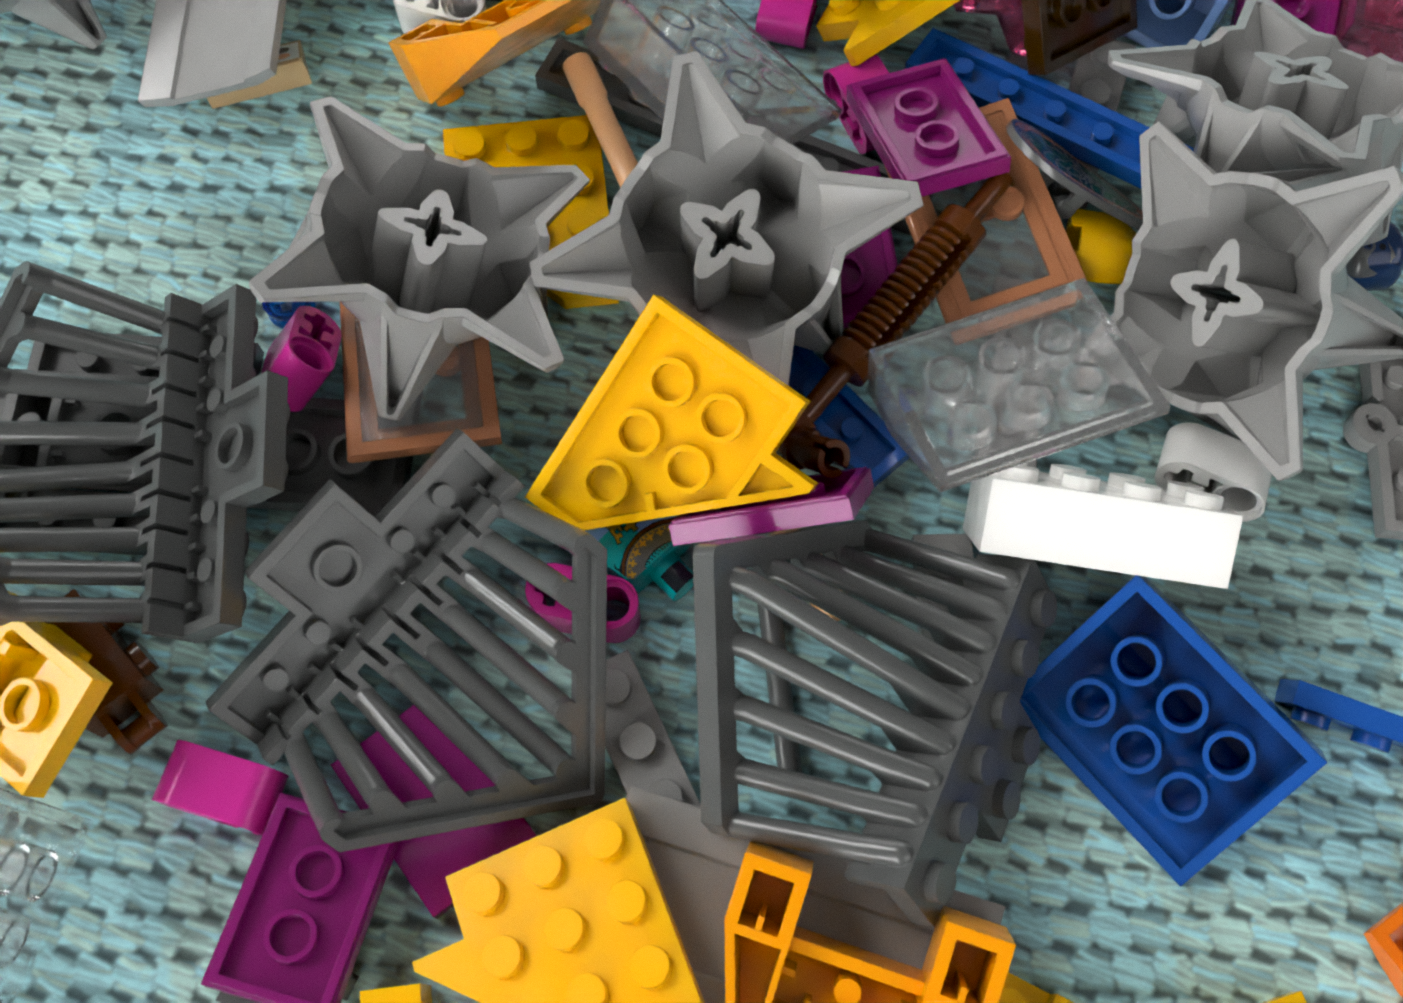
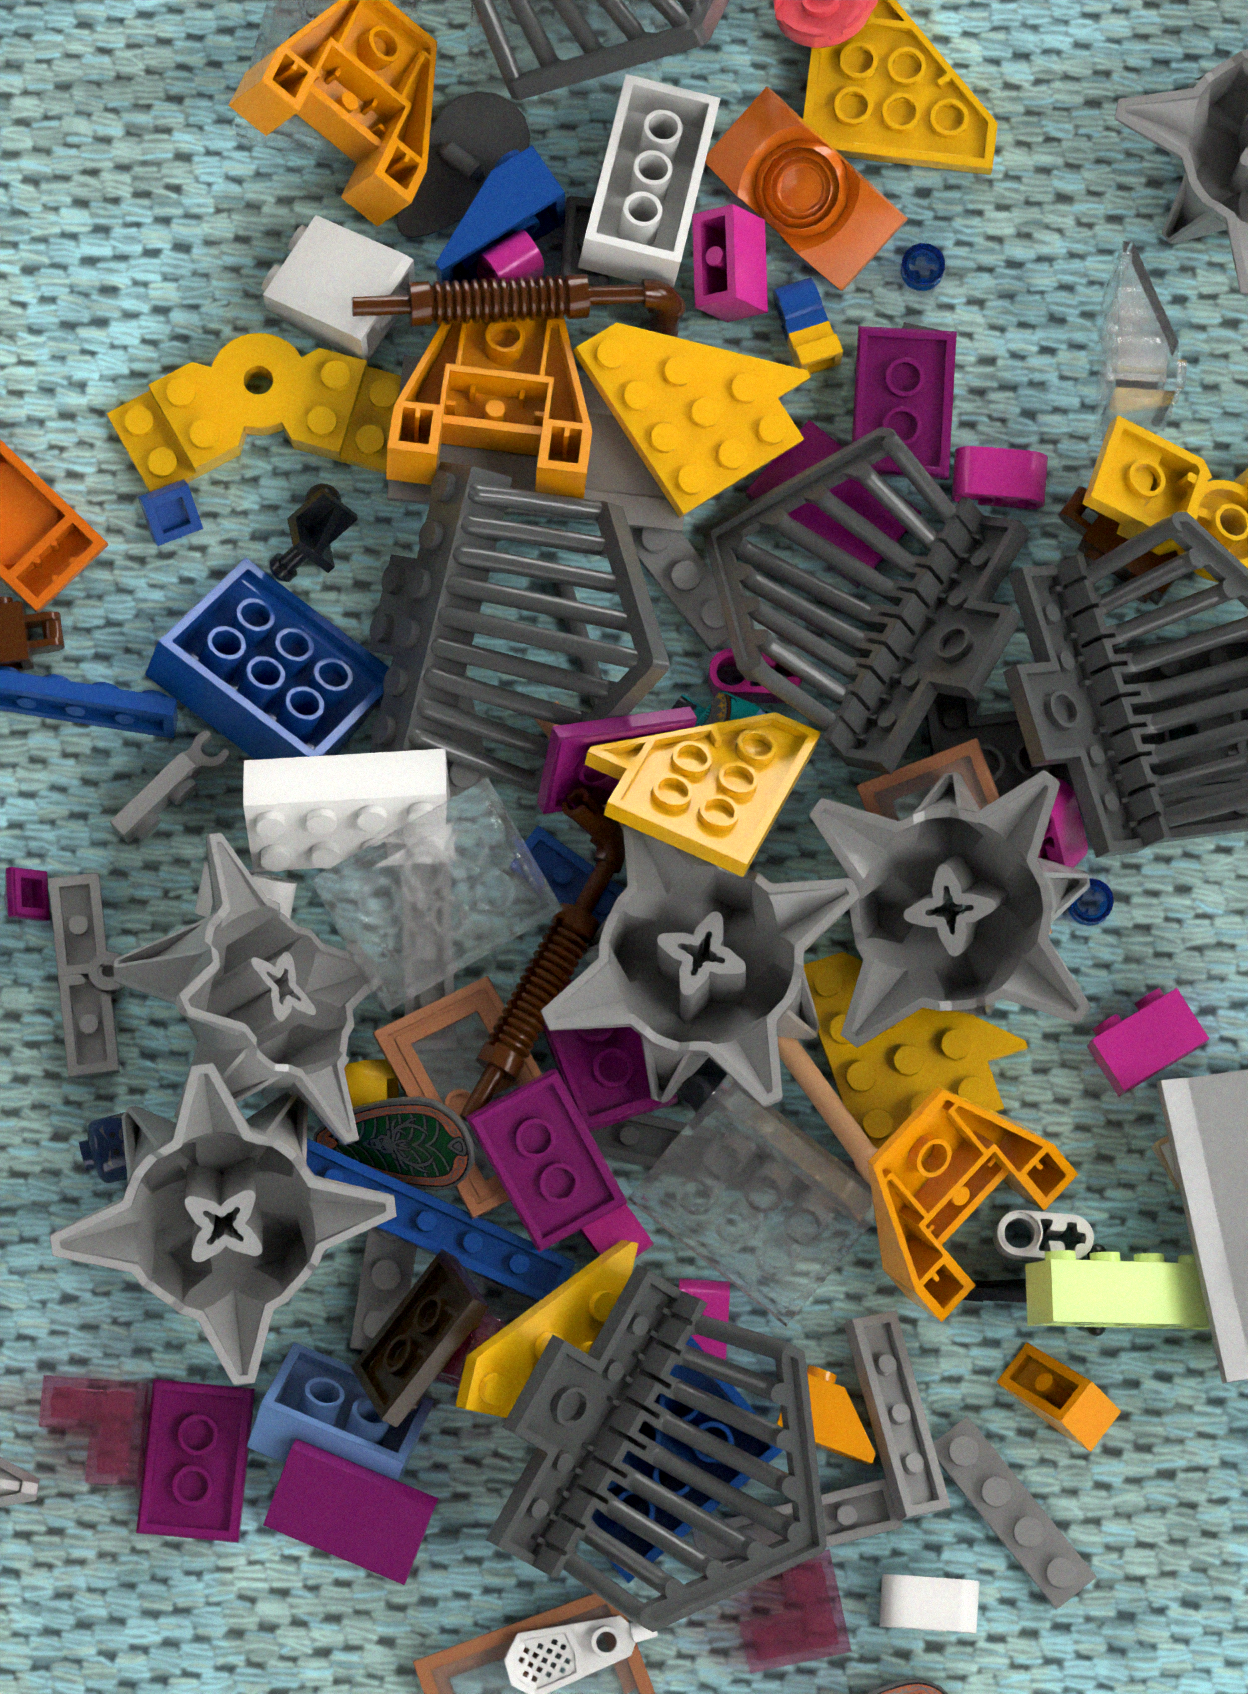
camera: 165 degrees right, 10 degrees up
(271, 156) = (1147, 1040): none -> dark pink brick
(1096, 896) = (312, 531): none -> black piece
(1281, 961) = (170, 512): none -> blue plate
(1291, 614) = (172, 784): none -> light grey plate

